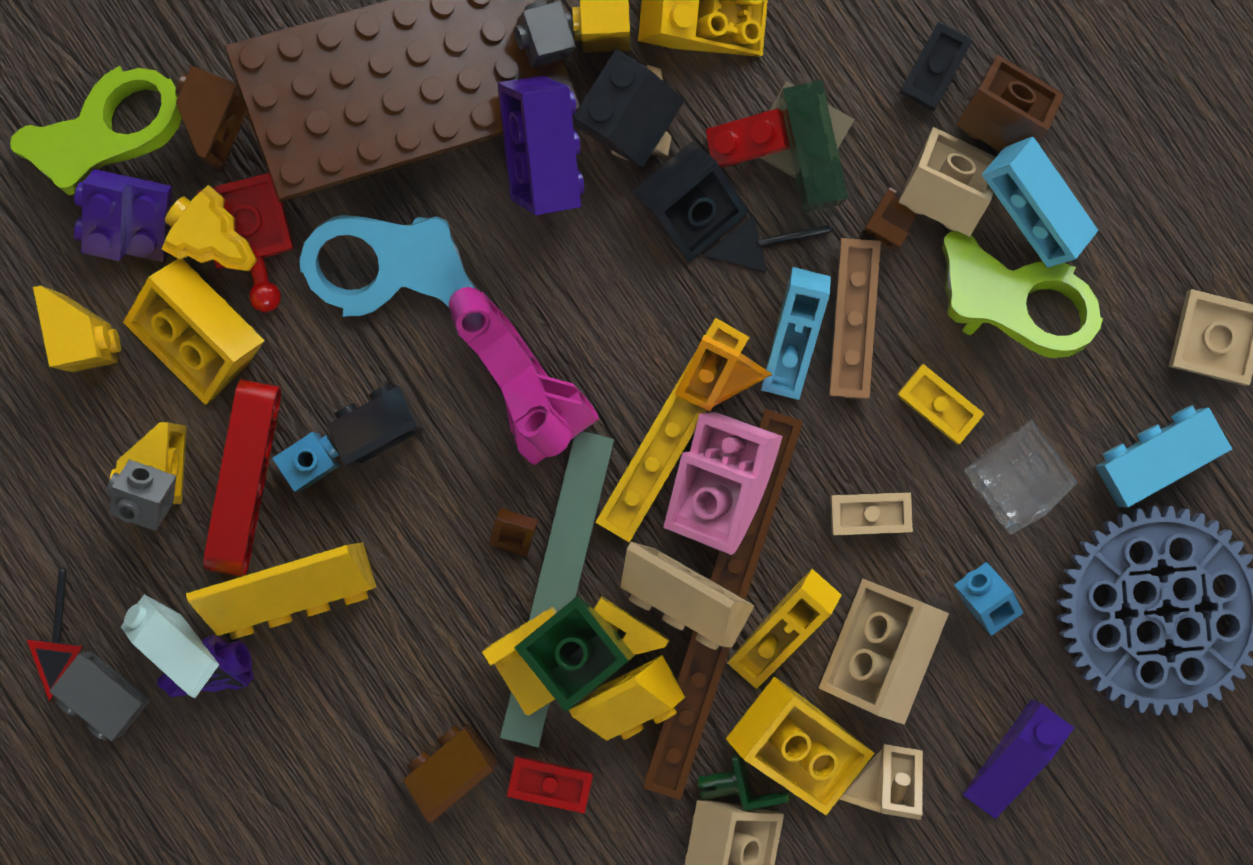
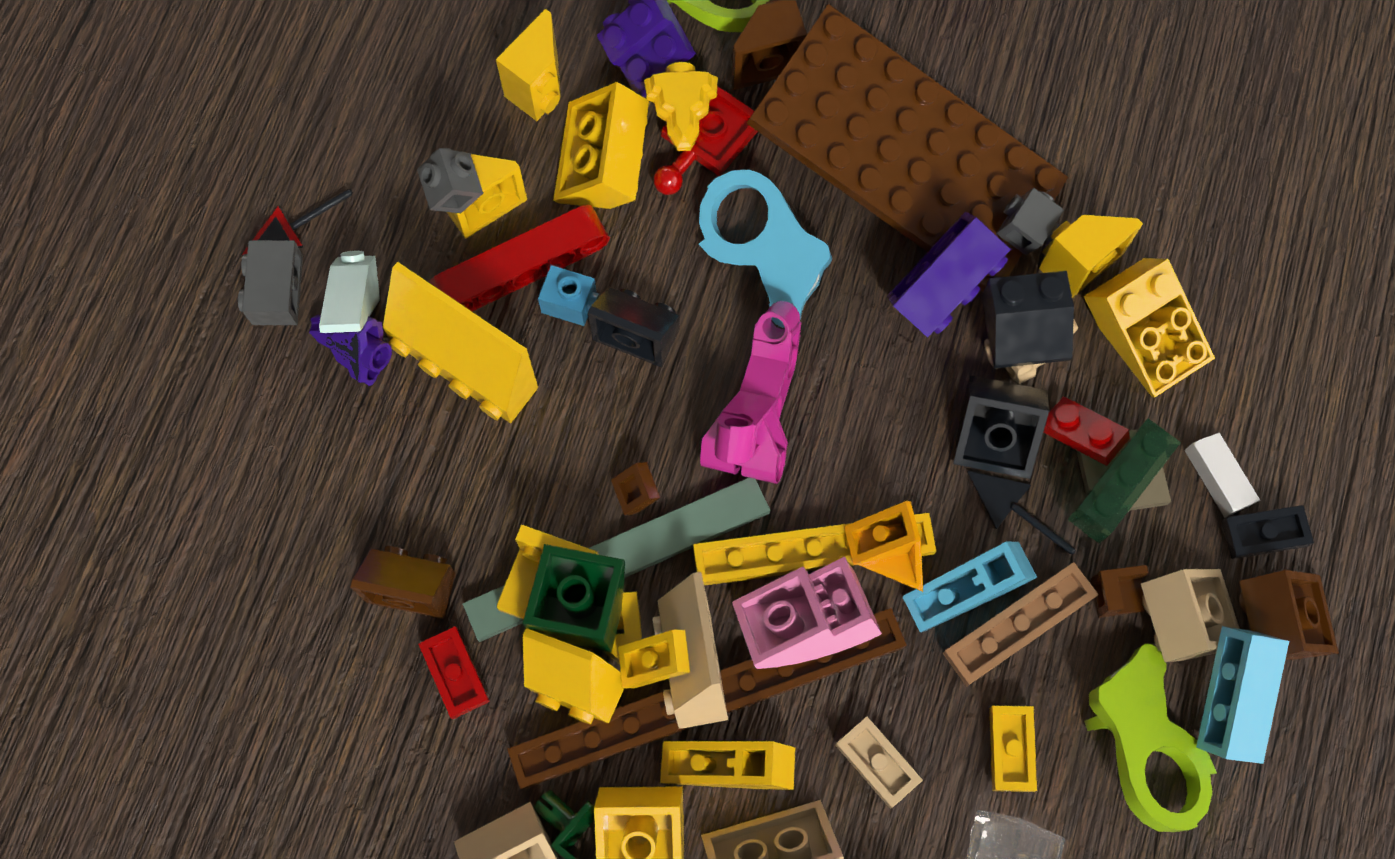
camera: 55 degrees right, 15 degrees down
(670, 630) = (654, 659): none -> yellow plate
(864, 59) = (1221, 474): none -> white slope

